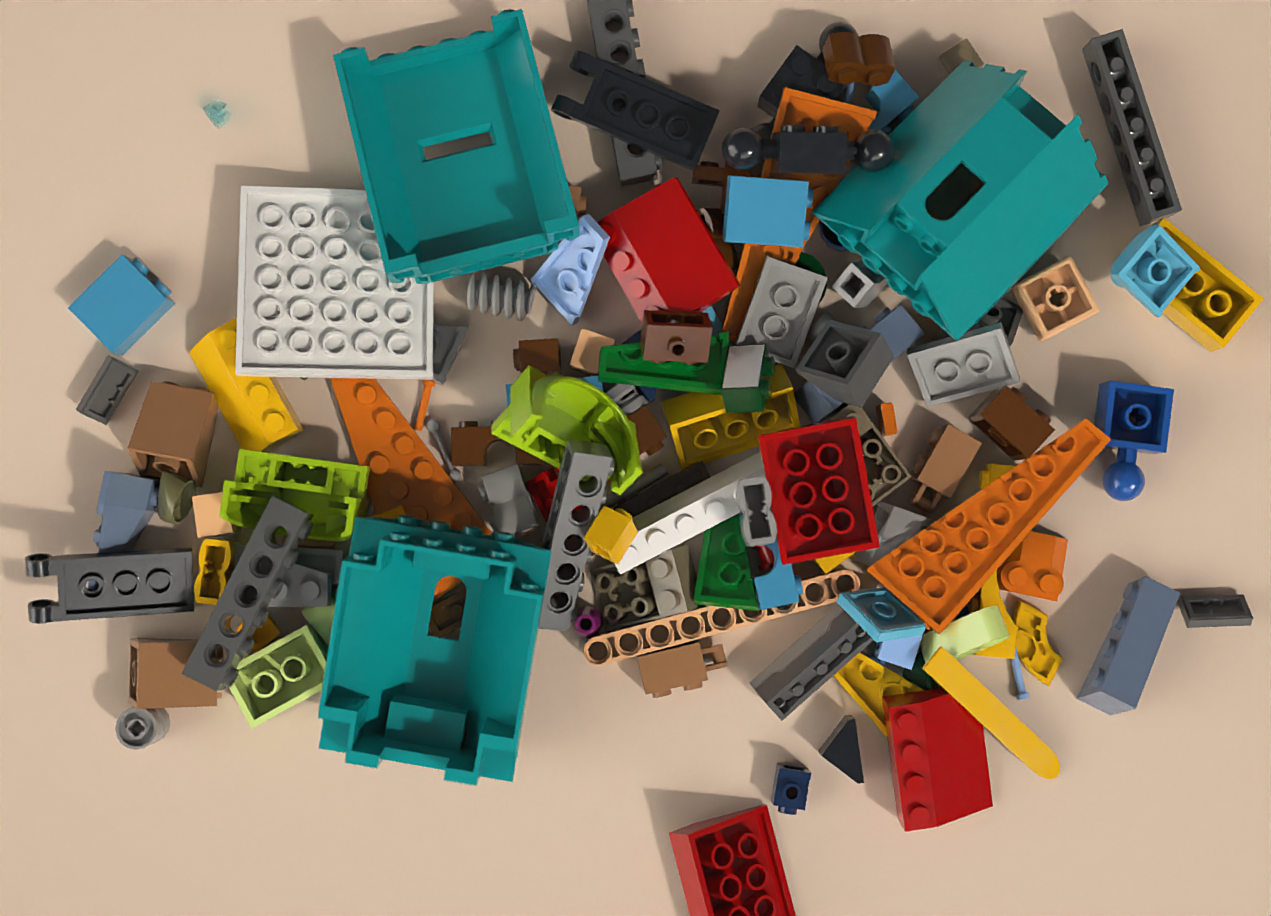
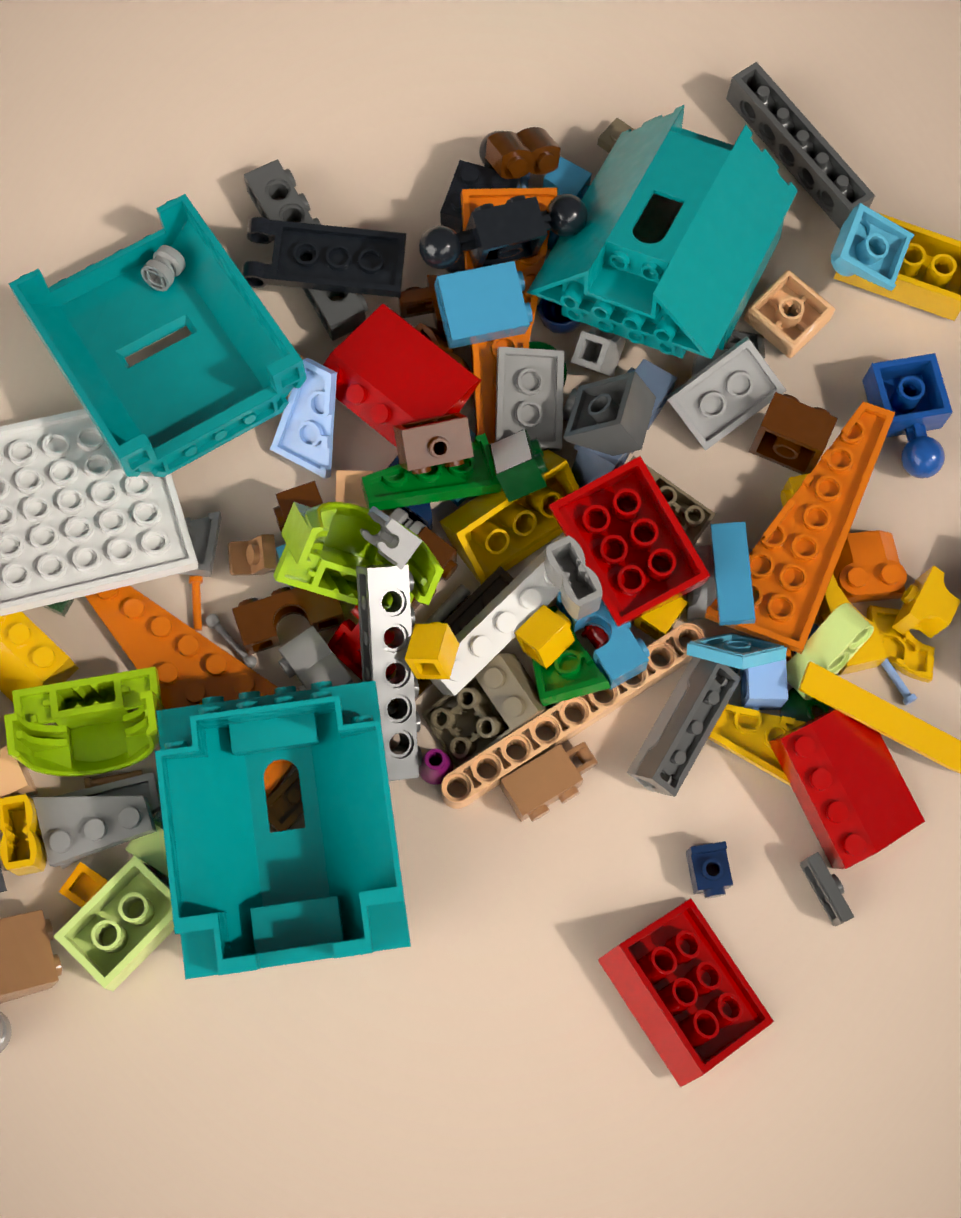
camera: 20 degrees left, 15 degrees down
(202, 663) = (37, 891): dark grey brick -> none
(482, 72) = (163, 268): none -> light grey wheel
(484, 380) = (252, 556): none -> medium nougat bracket
(500, 296) = (244, 471): light grey piece -> none
(607, 428) = (393, 539): none -> light grey hinge
(718, 544) = (545, 635): none -> yellow brick
(843, 749) = (751, 812): black slope -> none
(885, 837) = (827, 888): none -> dark grey plate
(886, 419) = (670, 469): orange tile -> none
(903, 543) = (732, 573): none -> dark azure tile
(943, 465) = (743, 491): medium nougat brick -> none
(1070, 620) = (926, 605): none -> yellow brick

